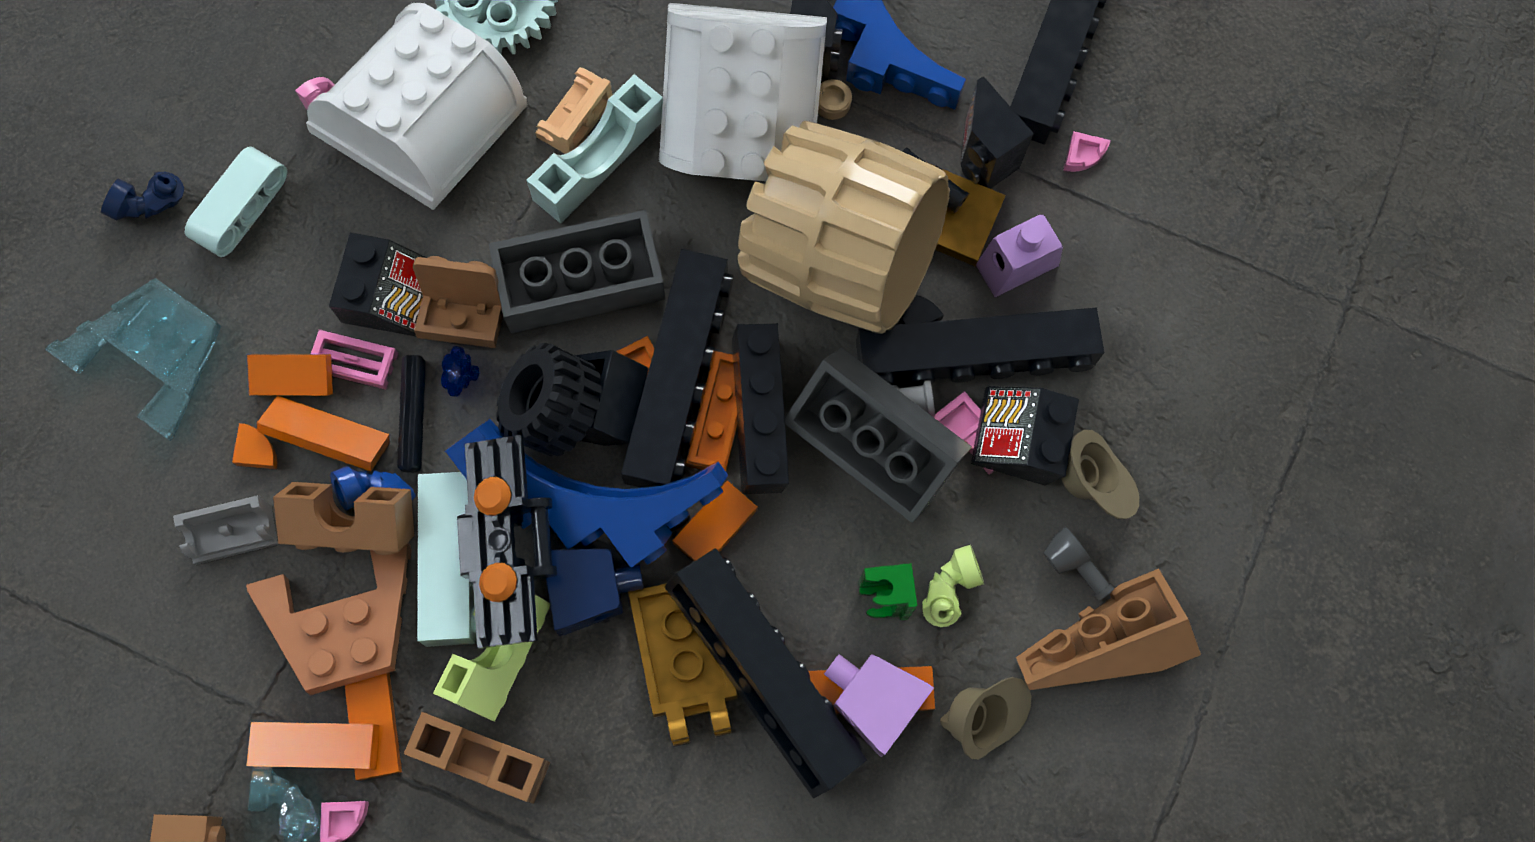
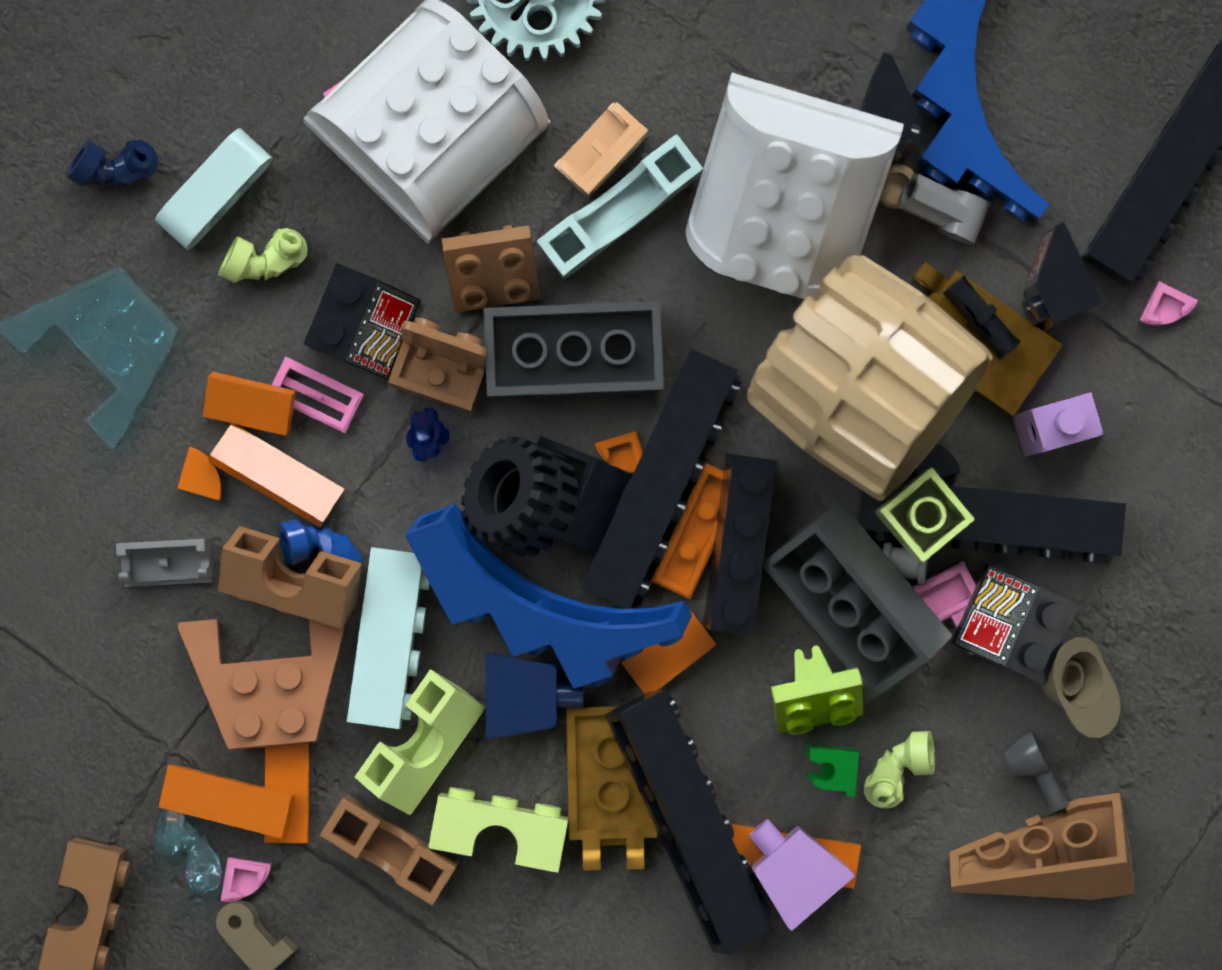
camera: 15 degrees right, 15 degrees up
(306, 242) = (281, 253): none -> yellowish green arm
(311, 89) = (319, 72): bright pink tile -> none
(411, 414) = (370, 469): black axle -> none
(487, 543) = (434, 640): black piece -> none
(489, 212) = (491, 268): none -> medium nougat plate
(546, 715) = (537, 831): none -> yellowish green arch
(860, 530) = (817, 696): none -> lime plate
(887, 105) = (954, 212): none -> light grey piece
(921, 341) = (924, 515): none -> yellowish green head
(988, 716) = (904, 909): dark tan piece -> none

